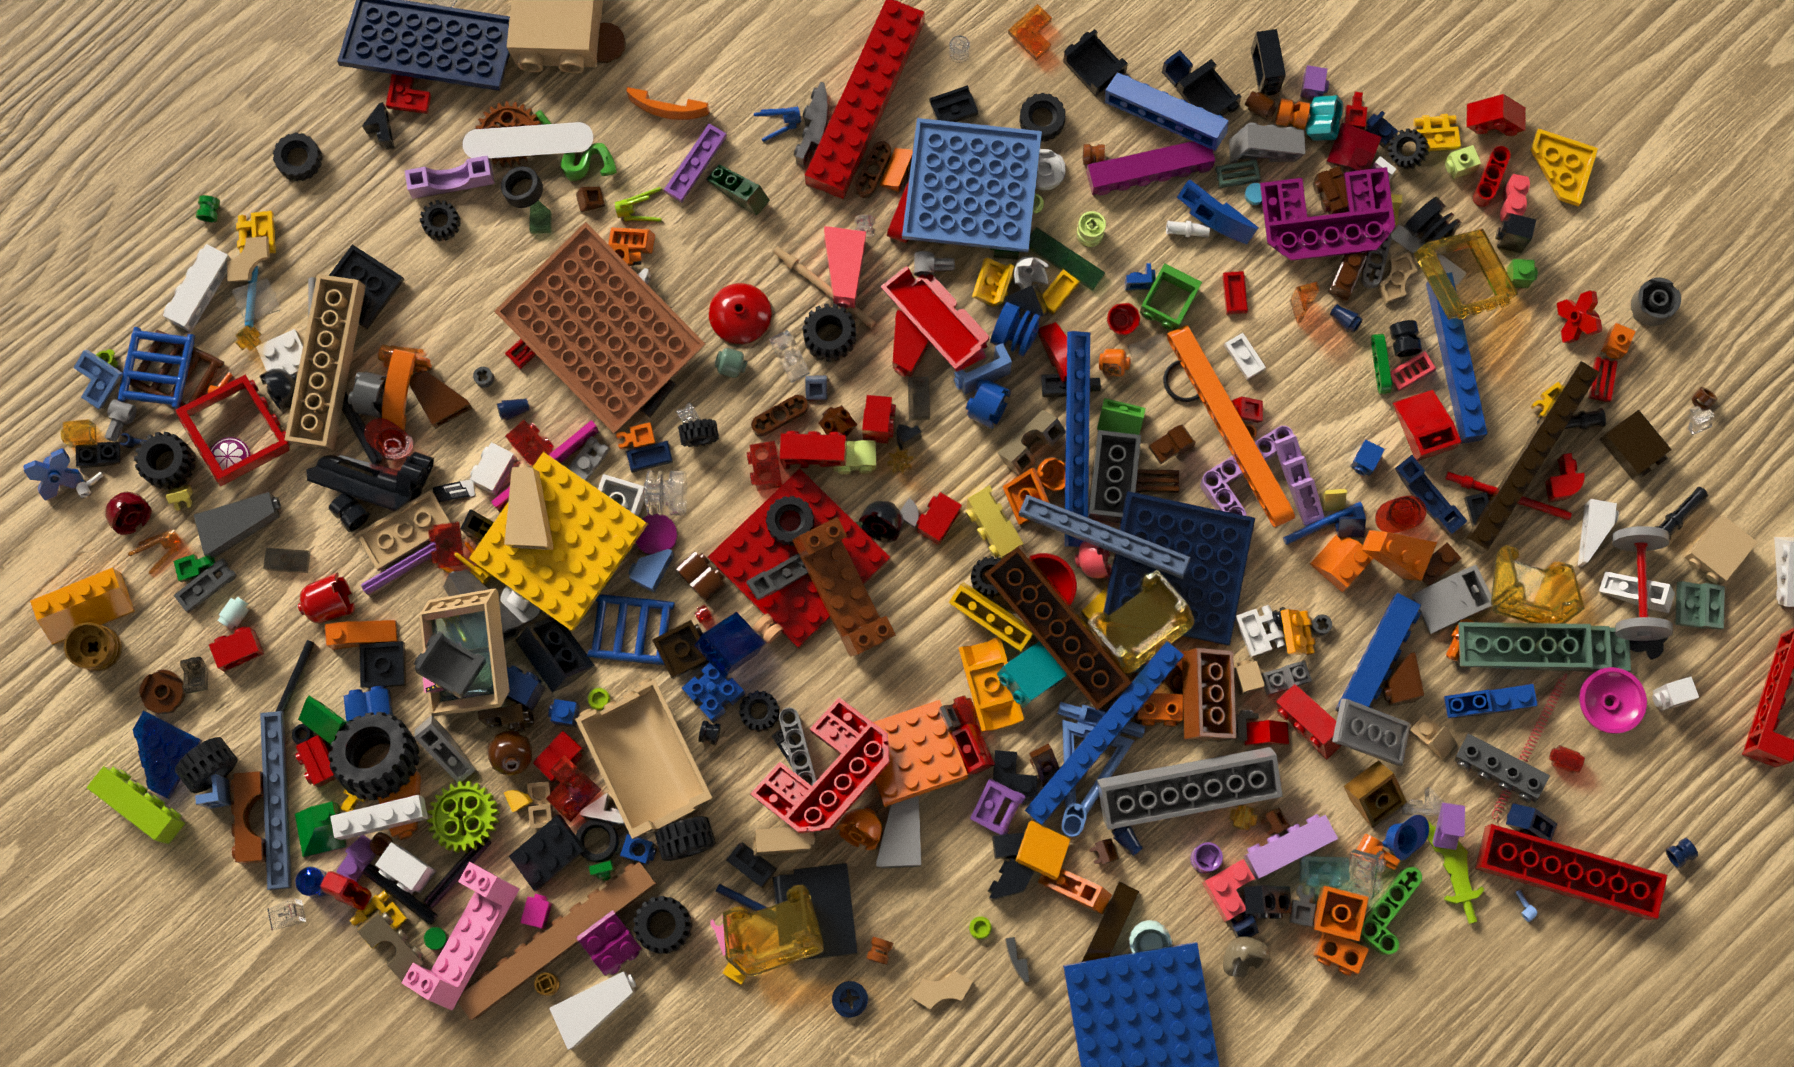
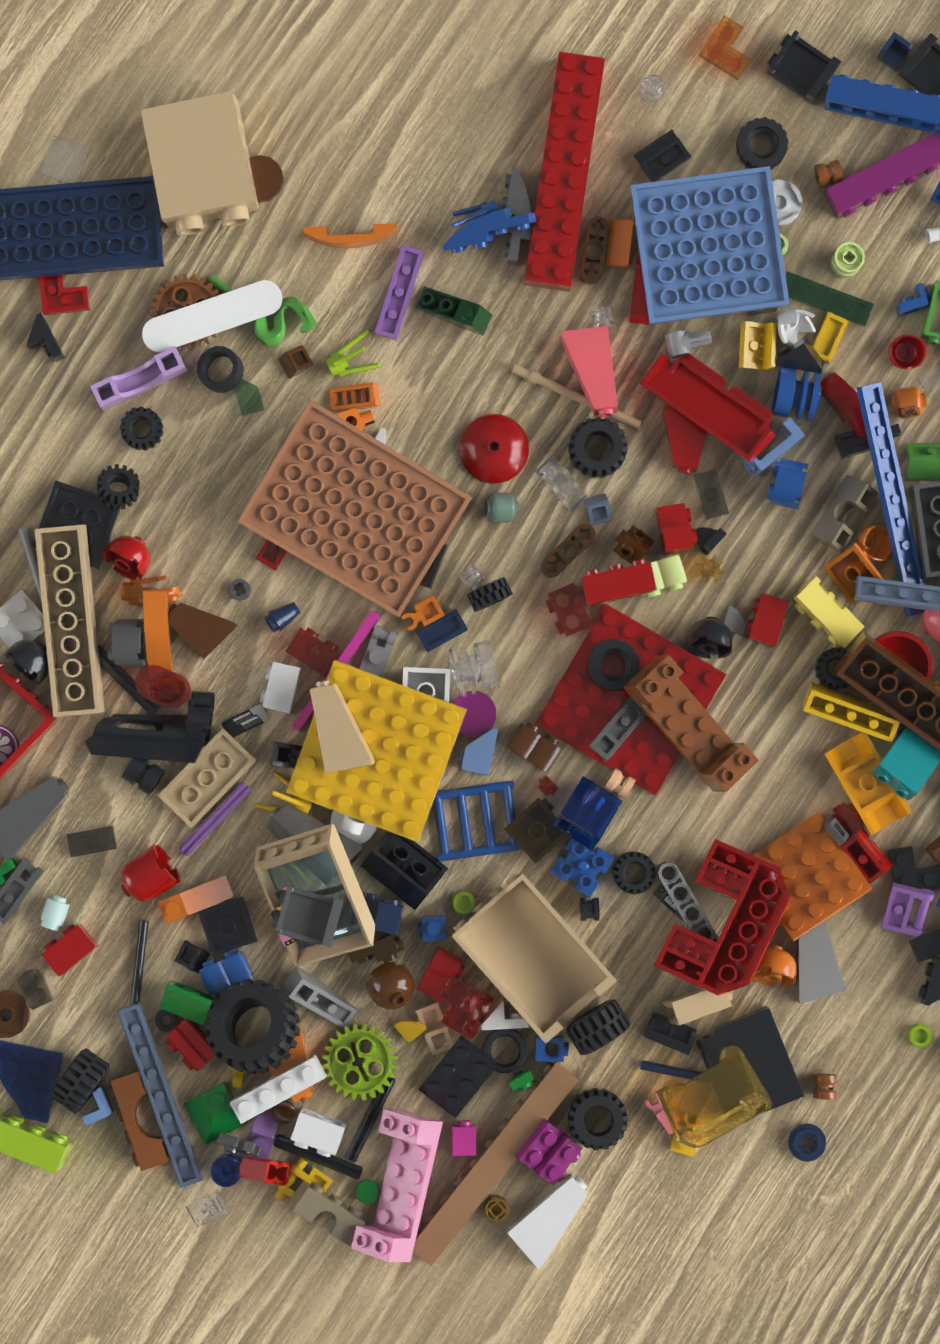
camera: 15 degrees left, 10 degrees up
(327, 861) = (234, 1145): none -> flat silver plate
(342, 683) = (192, 956): none -> black slope
(394, 321) = (128, 556): none -> red cylinder
(403, 253) = (118, 475): none -> black tyre
(452, 533) = (251, 771): clear red brick -> none
(781, 124) = (480, 230): none -> blue slope
(952, 987) = (888, 1113): tan tile -> none

